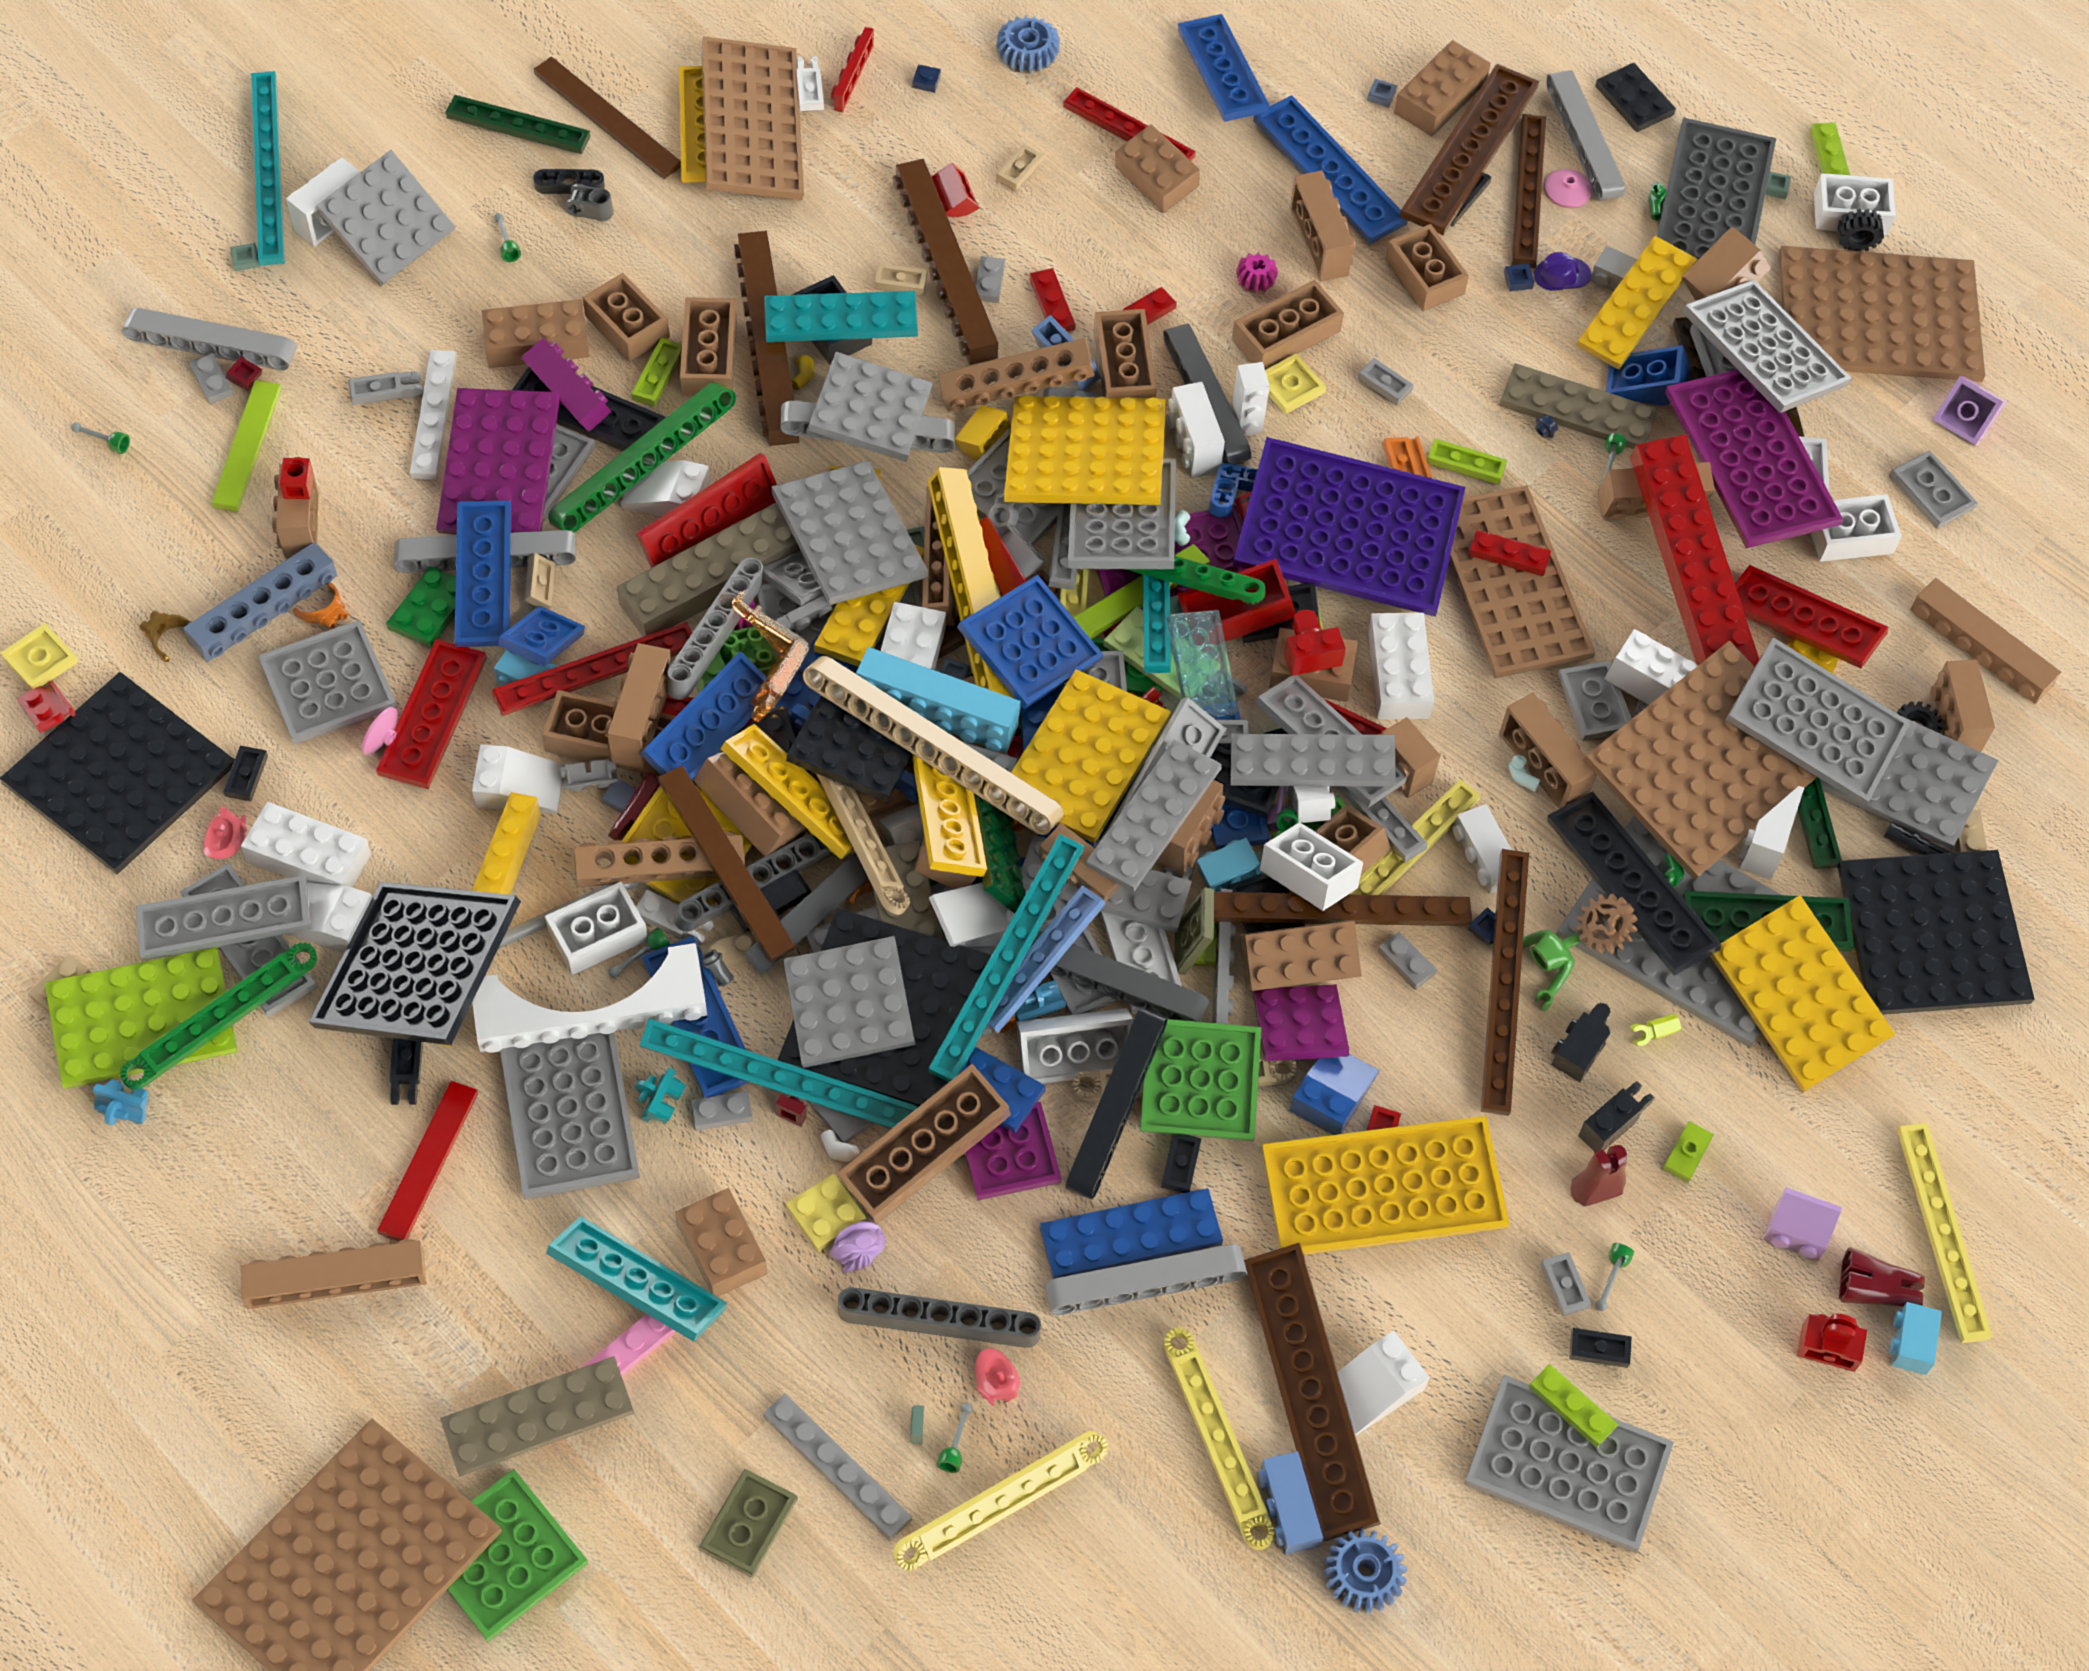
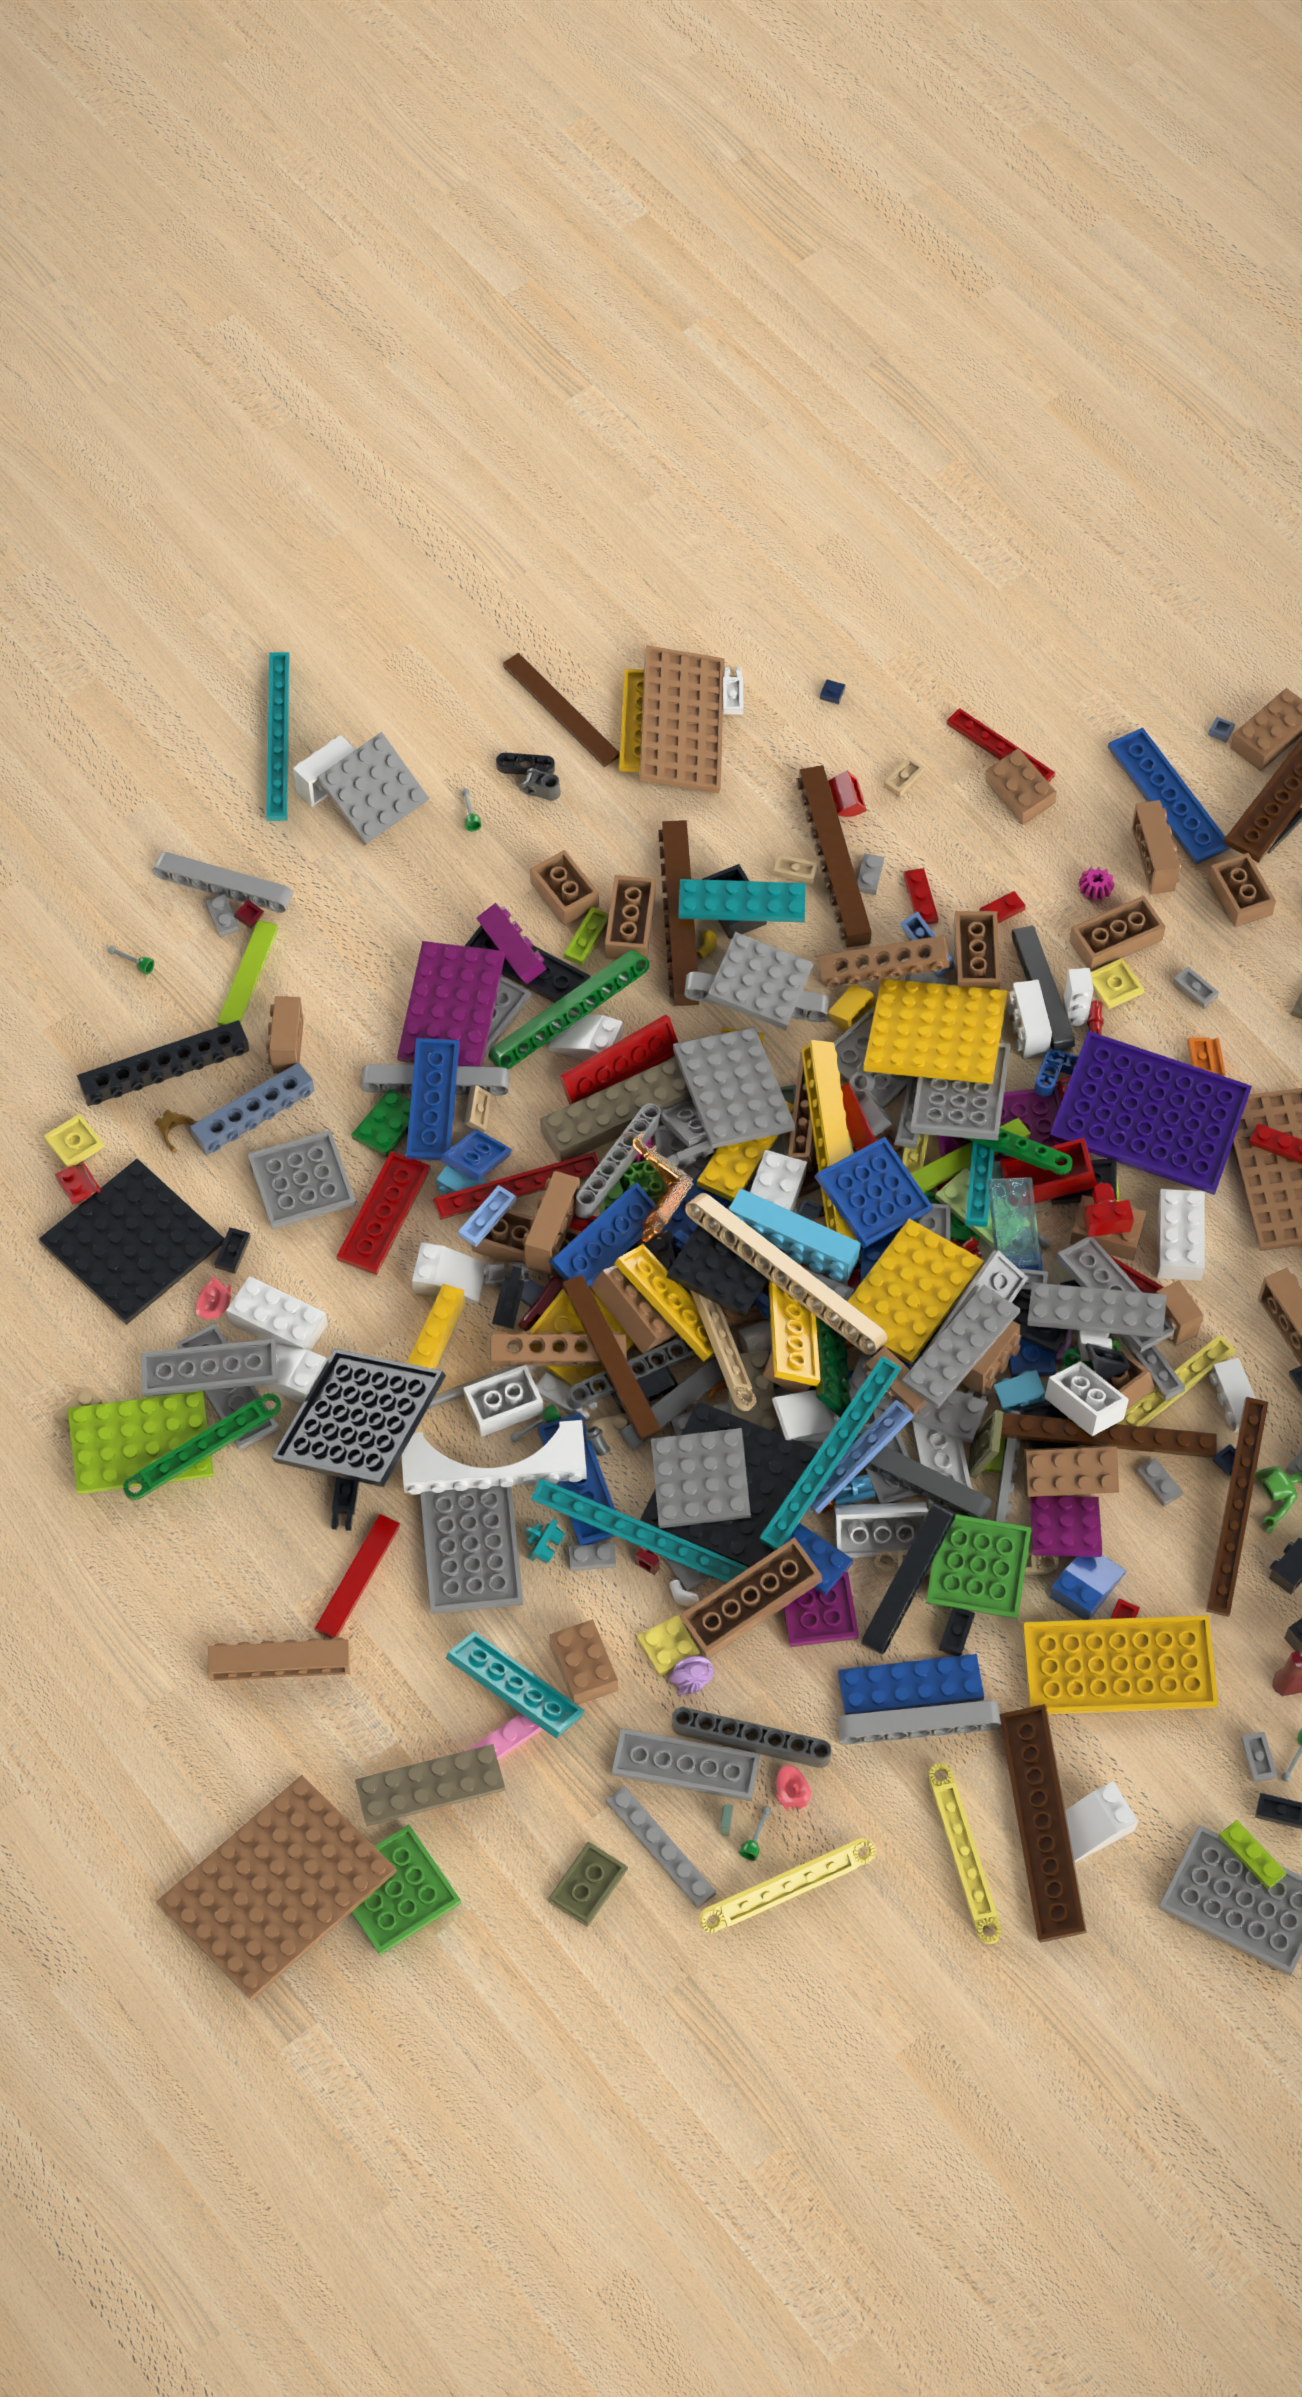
camera: 10 degrees right, 0 degrees up
(117, 1104) = (120, 1511): dark azure hips -> none
(146, 556) = (168, 1054): none -> black brick
(245, 257) = (255, 812): sand green tile -> none
(296, 478) = (288, 1017): red brick -> none
(328, 615) = (306, 1124): orange helmet -> none
(380, 731) = (342, 1225): bright pink dish -> none
(385, 387) = (362, 933): light grey hinge -> none
(433, 415) = (400, 959): white plate -> none
(516, 329) = (475, 892): medium nougat brick -> none
(518, 124) = (486, 711): dark green plate -> none
(559, 705) = (487, 1216): none -> light blue plate
(594, 805) = (509, 1299): none -> black hinge
(855, 63) = (773, 675): red plate -> none
(860, 1359) = (686, 1764): none -> light grey plate
(1028, 43) = (921, 666): medium blue gear -> none
(1180, 532) = (1007, 1108): light aqua arm -> none
(1223, 67) = (1086, 699): blue plate -> none
(1272, 427) = (1095, 1018): none -> red pin
(1290, 1503) = (1016, 1909): medium blue brick -> none
(1330, 820) = (1106, 1361): none -> black slope
(1357, 1588) = (1073, 1954): medium blue gear -> none
(1467, 461) = (1257, 1062): lime plate -> none
(1519, 773) = (1270, 1333): light aqua arm -> none

